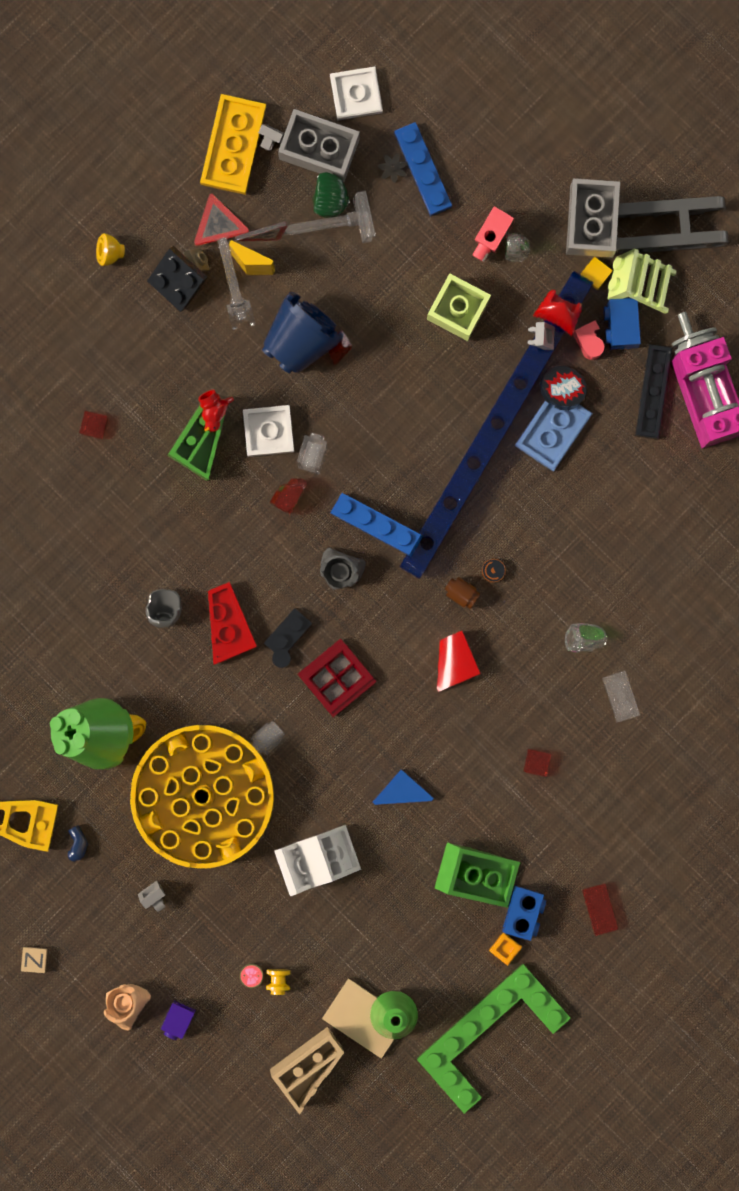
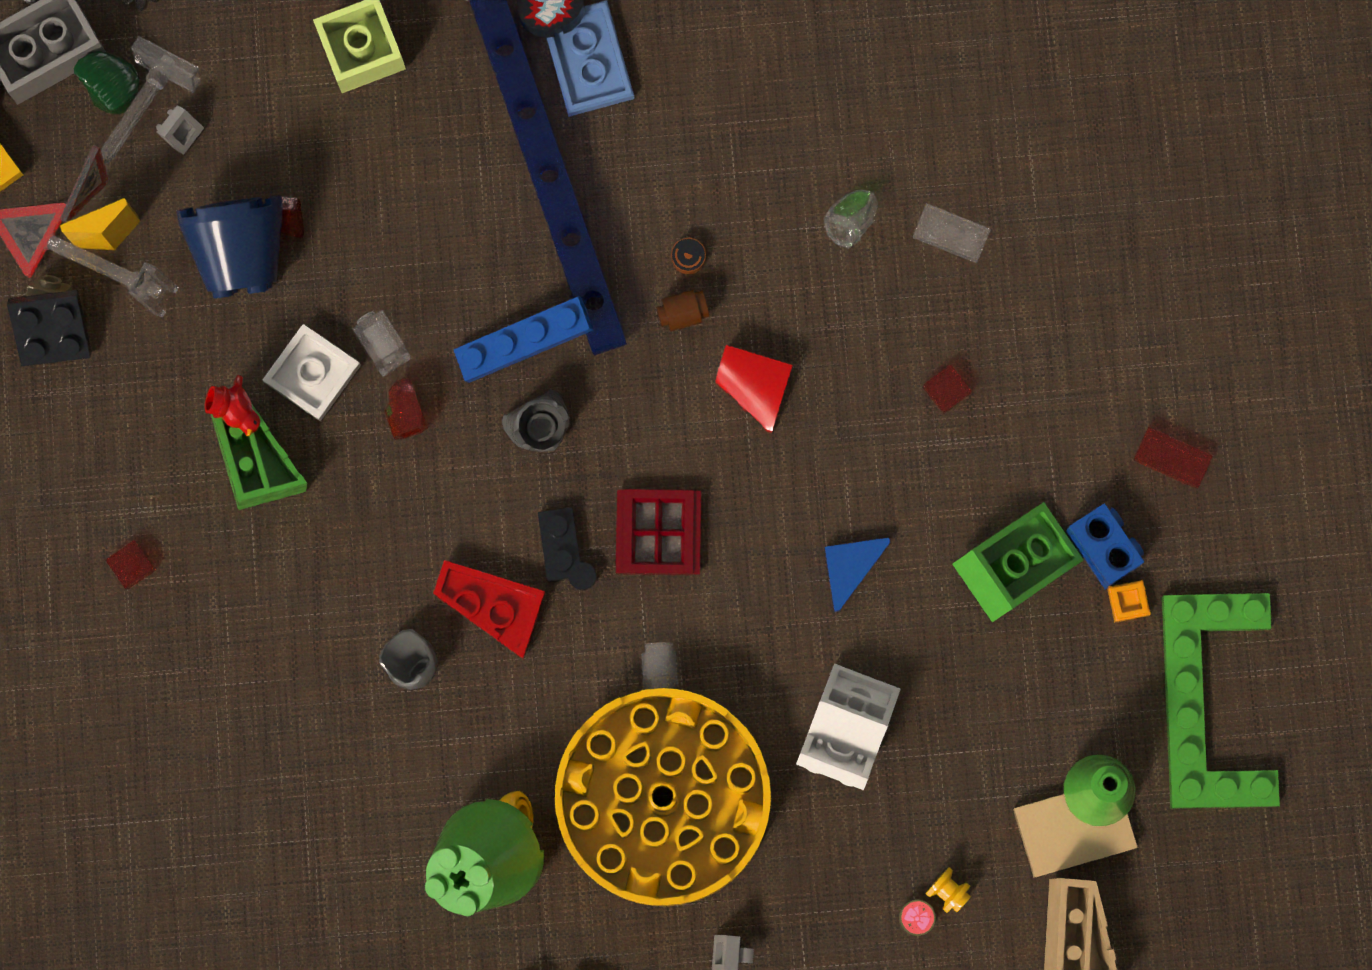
camera: 40 degrees left, 5 degrees down
(336, 253) = (179, 129): none -> light grey tile

